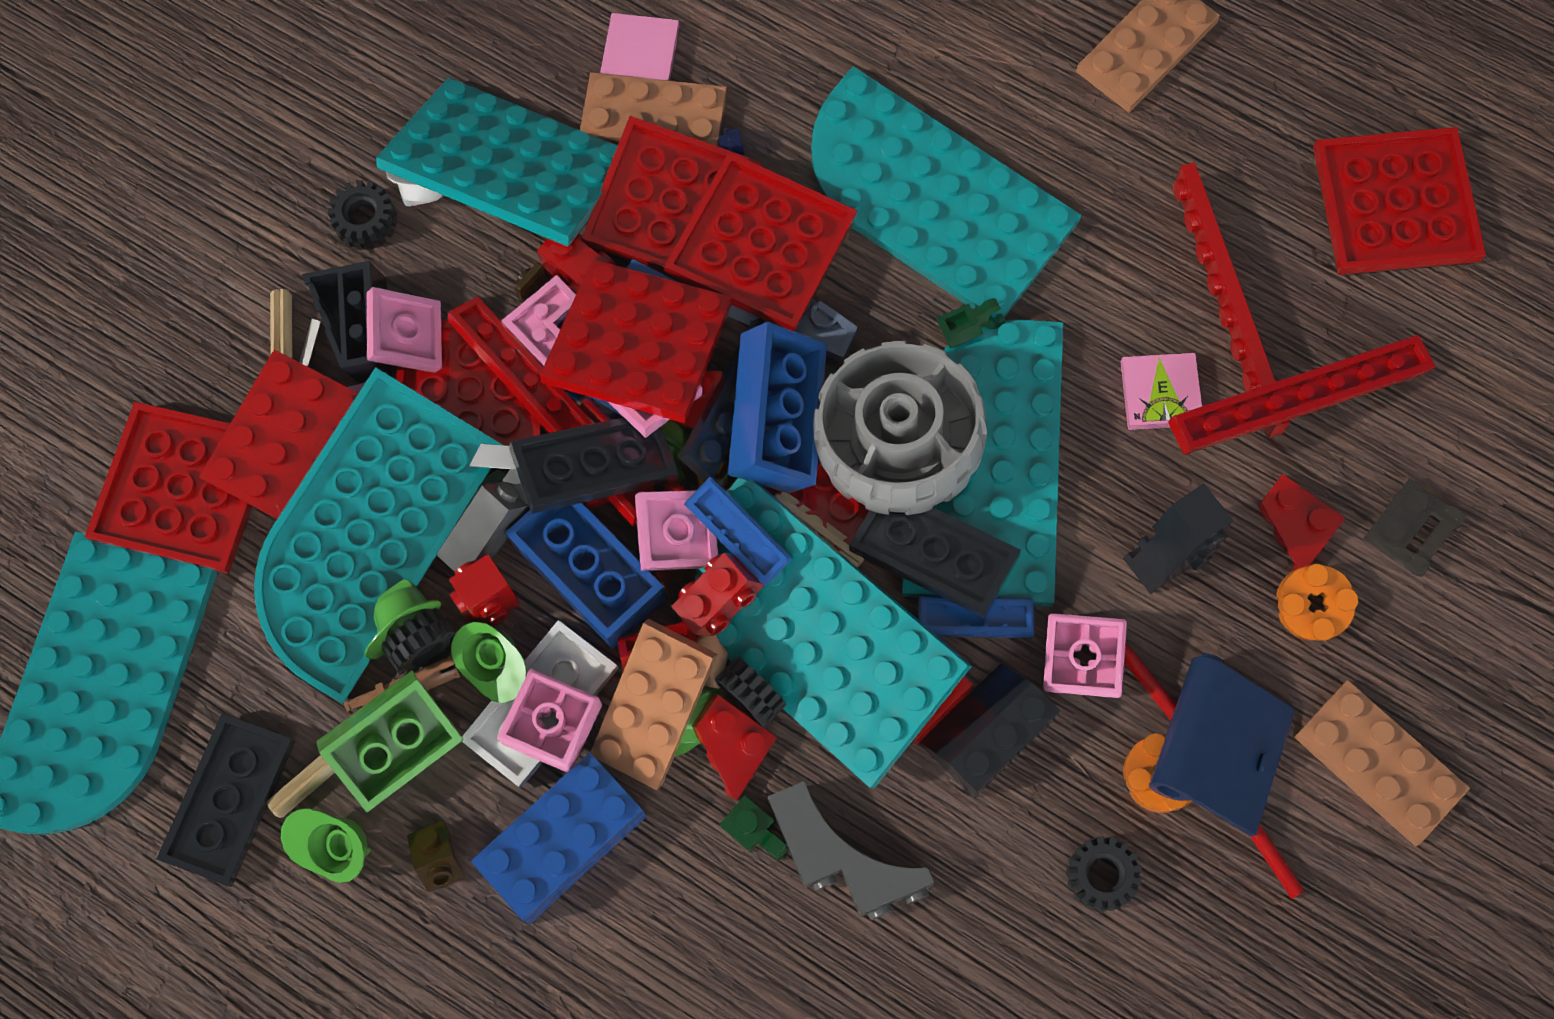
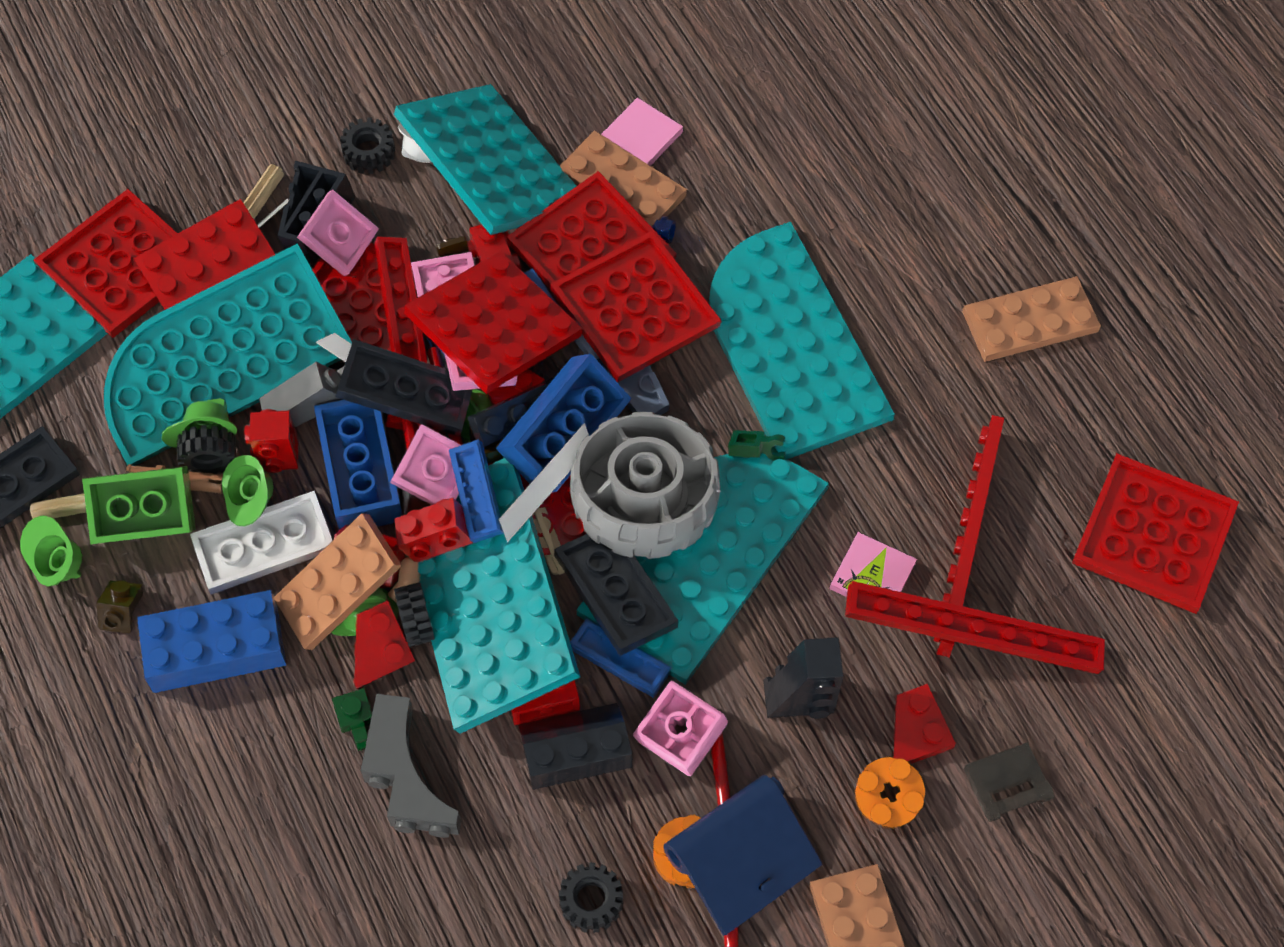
camera: 25 degrees right, 10 degrees down
(541, 697) = (263, 534): bright pink brick -> none
(803, 486) = (542, 485): none -> white sticker

